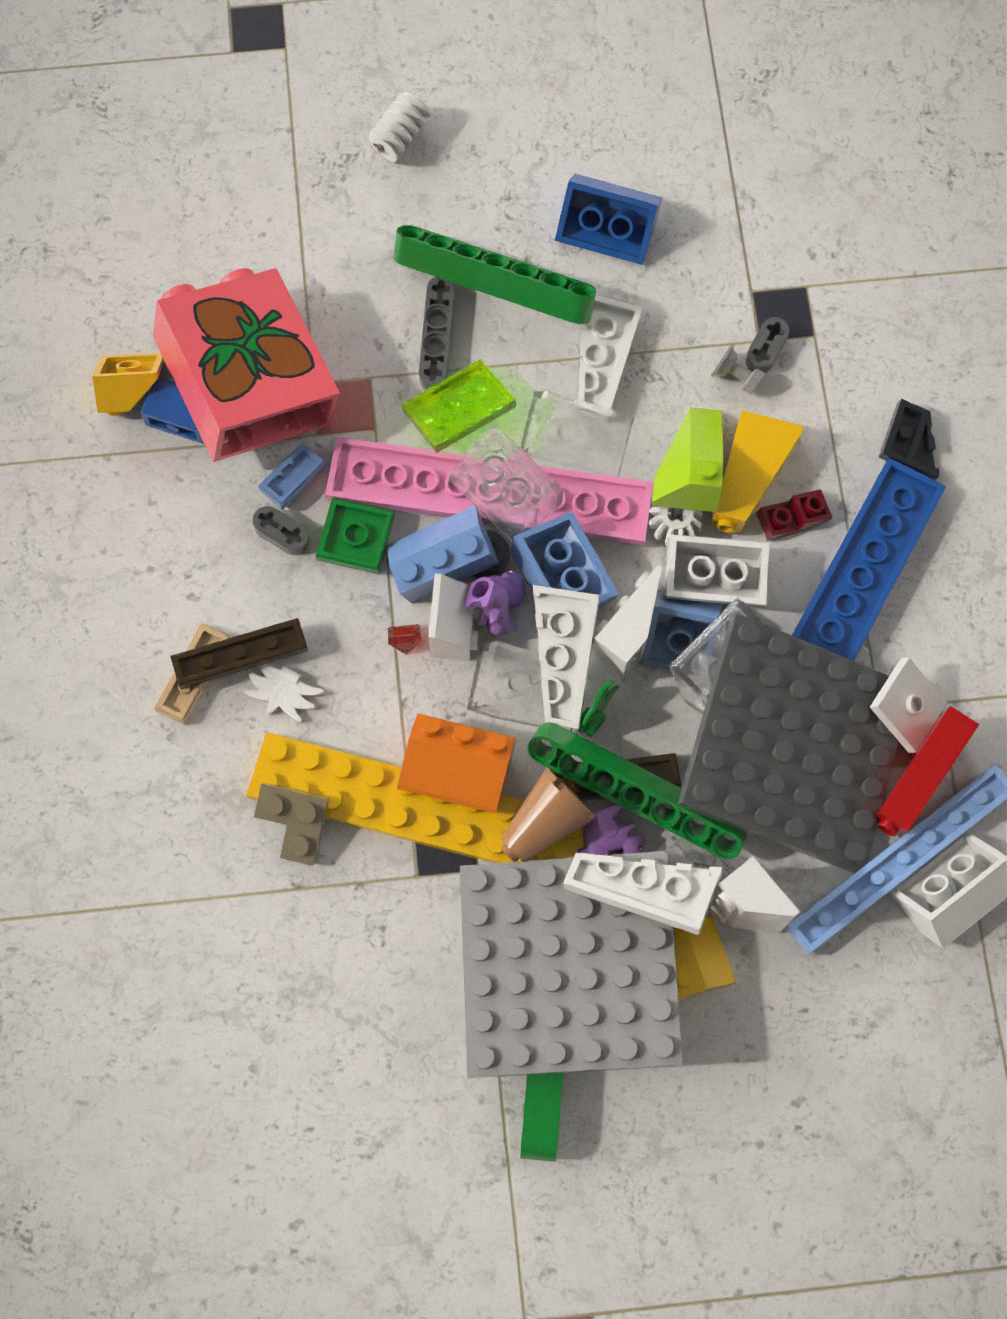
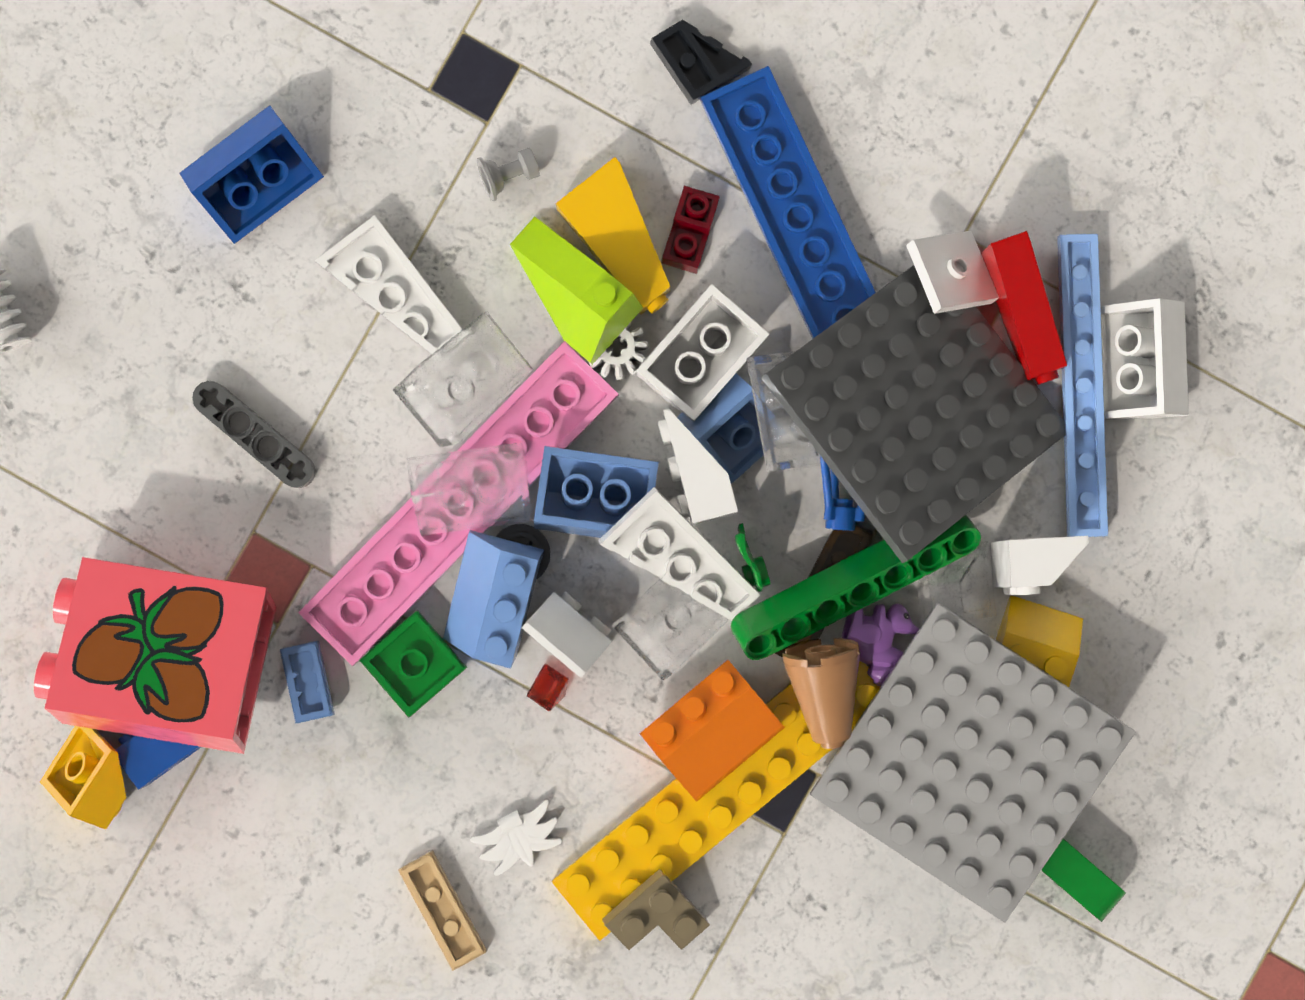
camera: 50 degrees left, 15 degrees up
(239, 653) = (456, 856): dark brown tile -> none
(277, 536) = (352, 722): dark grey beam -> none
(458, 405) = (350, 470): clear neon green plate -> none
(494, 274) = (235, 337): green beam -> none
(494, 598) = (576, 581): medium lavender animal -> none
(656, 891) = (973, 643): white wing -> none
(679, 744) = (838, 511): none -> blue plant
(761, 342) = (491, 124): dark grey beam -> none

